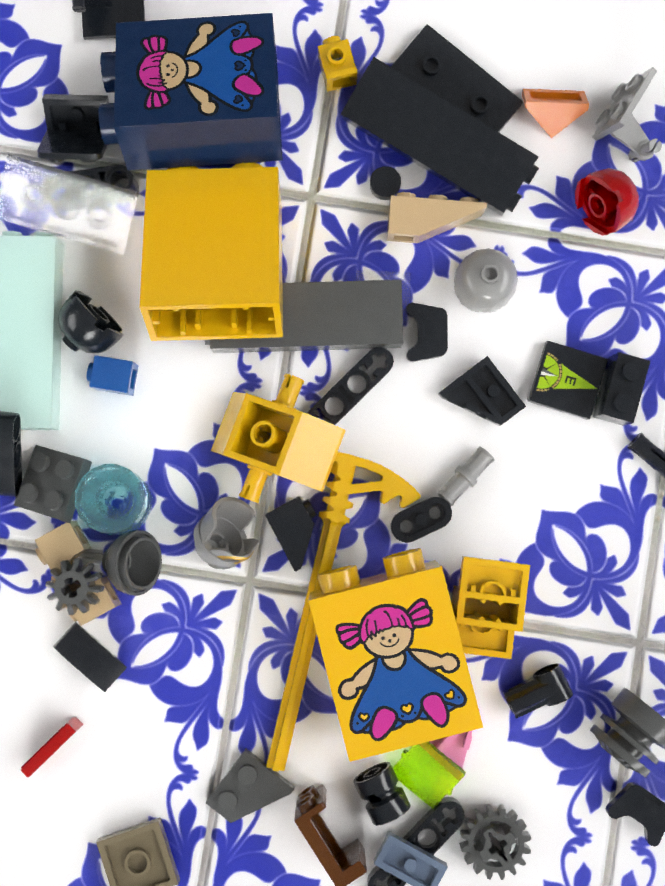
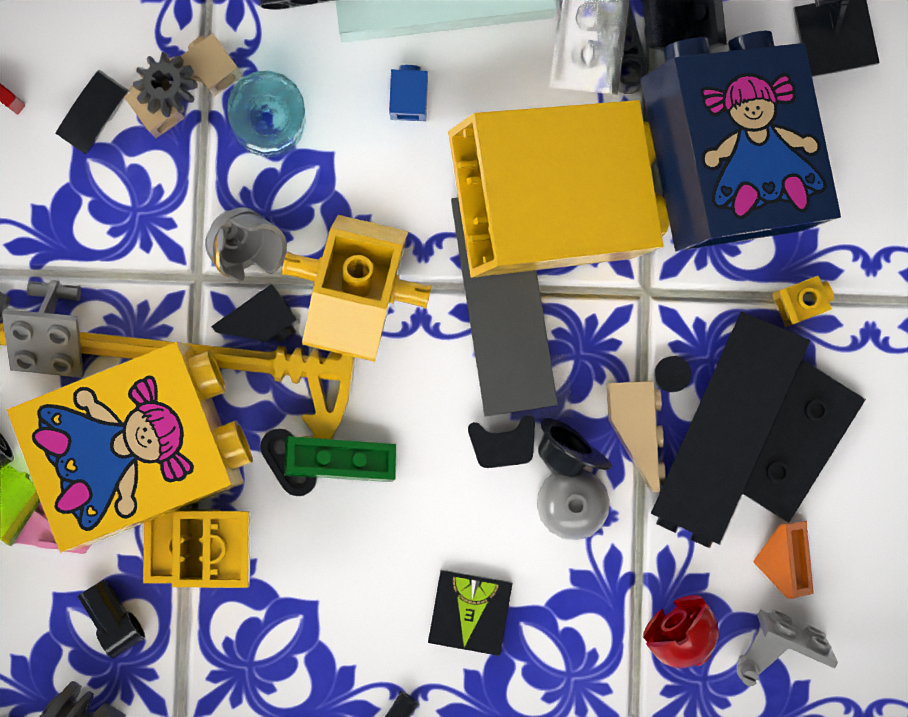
camera: 90 degrees right, 0 degrees up
(52, 483) = (278, 43): dark grey plate -> none
(87, 326) = (460, 58): black cylinder -> none
(133, 562) = (200, 145): dark grey piece -> none
(287, 723) = (42, 339): none -> light grey plate
(349, 398) = (425, 354): black beam -> none
(424, 474) = (340, 459): none -> green plate
(442, 278) = (566, 450): none -> black piece
(466, 475) = (344, 507): light grey pin -> none
(484, 393) = (441, 517): black wing -> none
(621, 389) = (465, 674): black brick -> none

